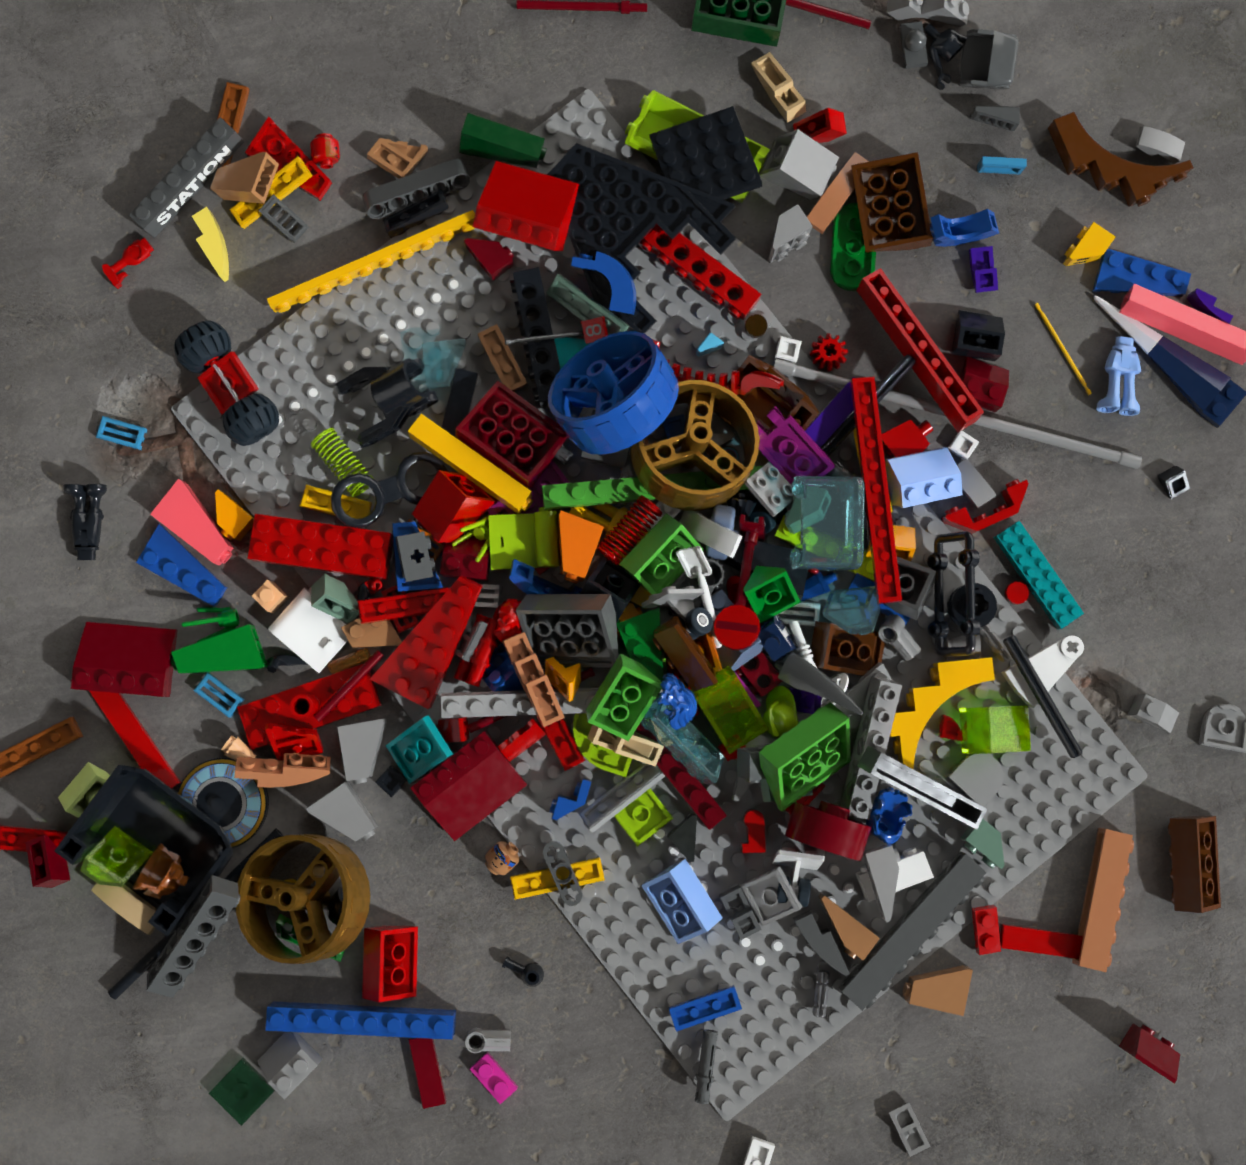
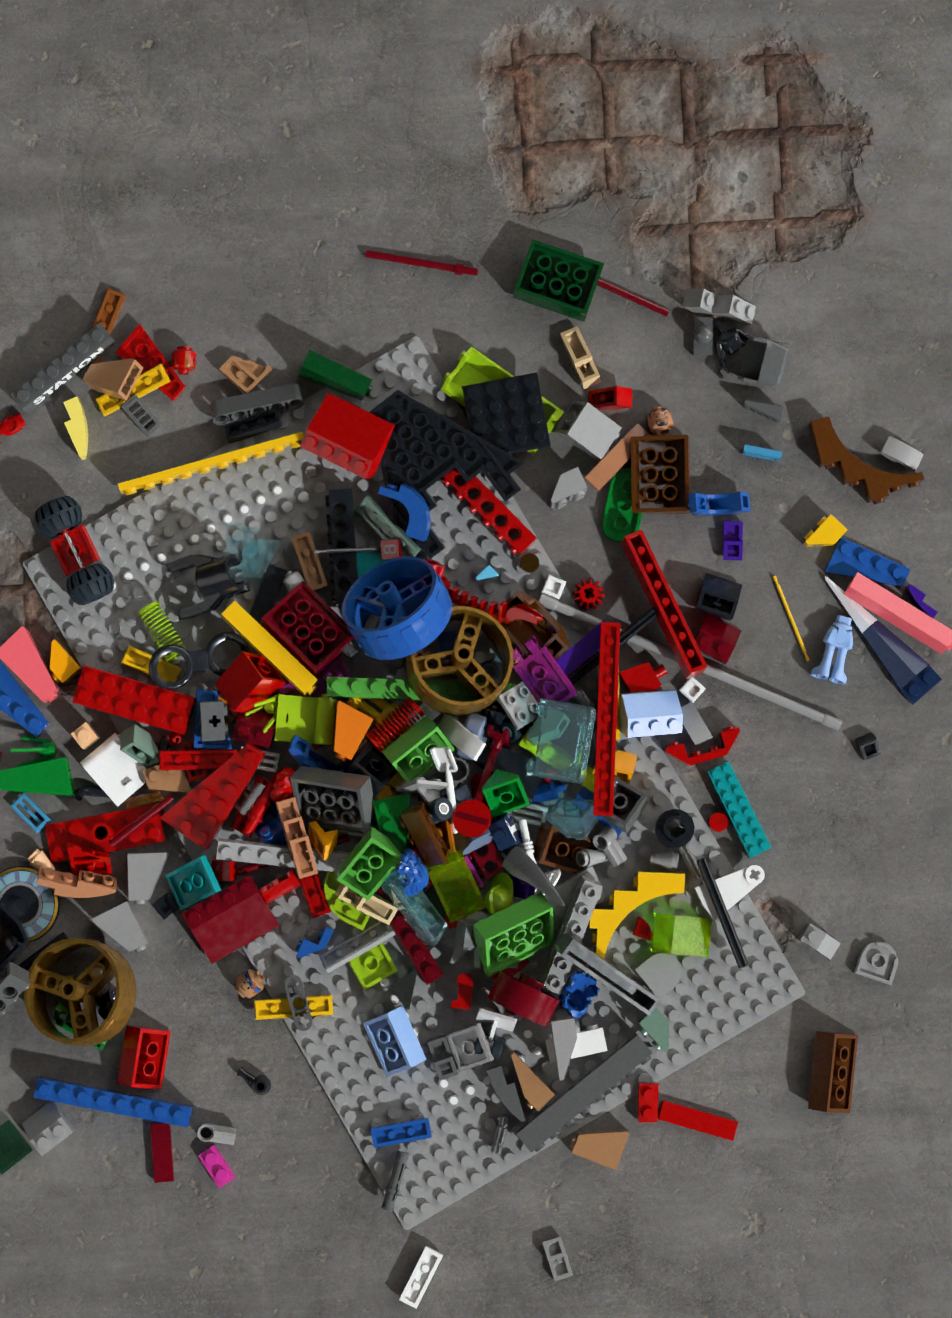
camera: 10 degrees right, 0 degrees up
(485, 382) = (292, 580): none -> light grey piece
(490, 256) = (312, 472): dark red slope -> none
(877, 654) = (588, 857): none -> light grey cone
(880, 144) = (660, 421): none -> nougat head
(970, 626) = (653, 787): black bar -> none
(1103, 898) = (749, 1090): nougat brick -> none
(1152, 1052) = (769, 1222): dark red slope -> none

